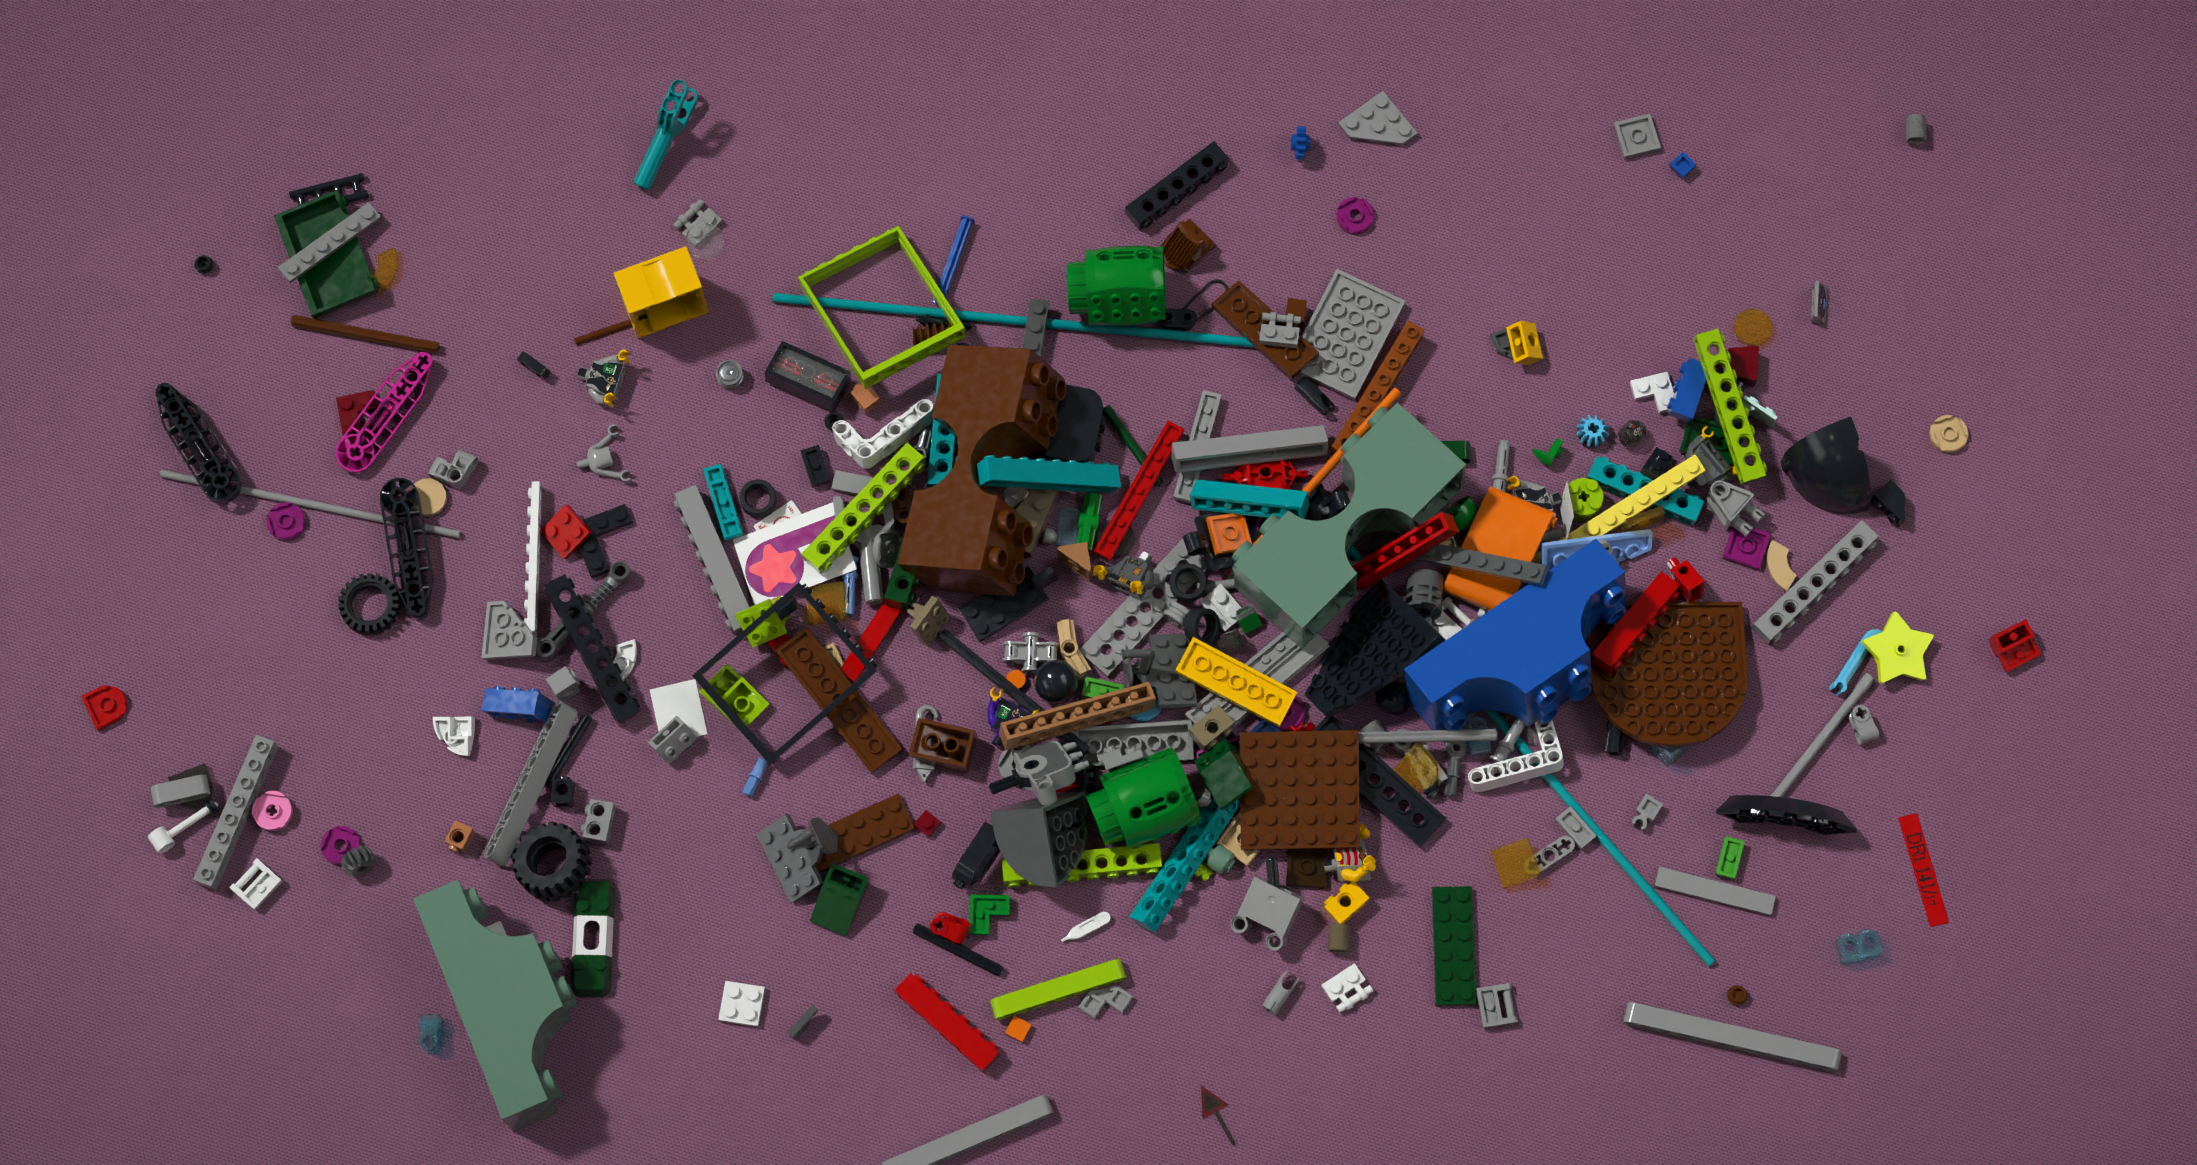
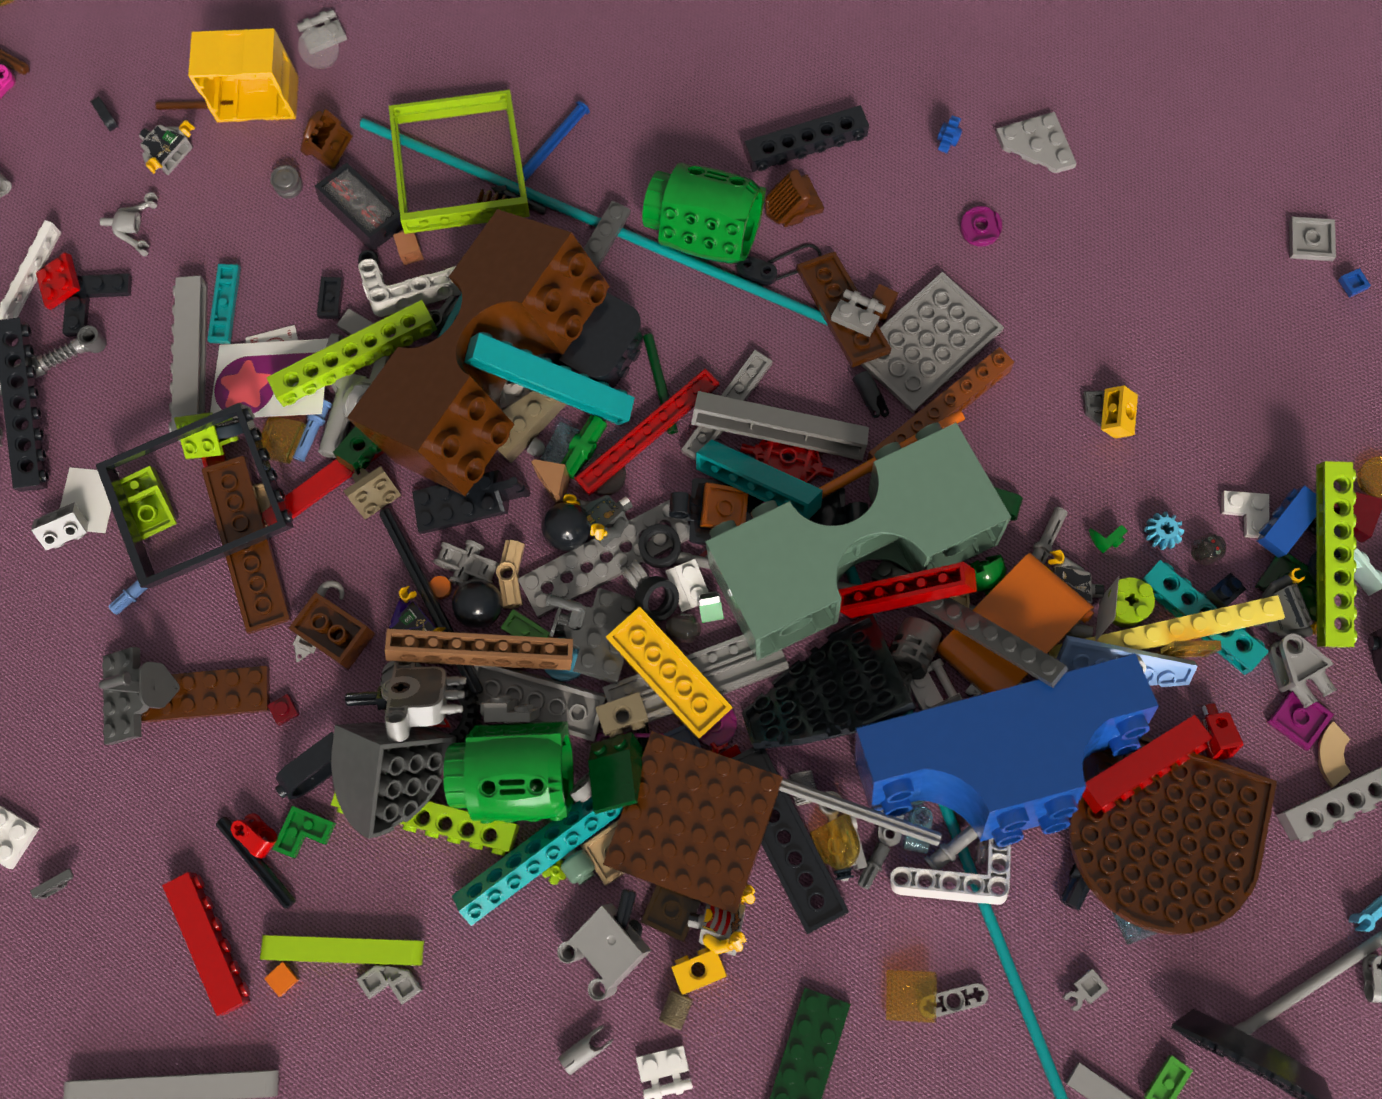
camera: 25 degrees right, 0 degrees up
(625, 658) = (58, 428): white tile -> none
(749, 325) = (325, 138): none -> reddish brown piece
(754, 484) = (251, 299): black tyre -> none
(839, 899) = (154, 759): dark green slope -> none
(1088, 926) = (405, 889): white piece -> none
(1102, 593) = (565, 526): none -> black piece
(1393, 698) = (837, 753): black hair -> none
(1575, 827) = (995, 978): light grey plate -> none

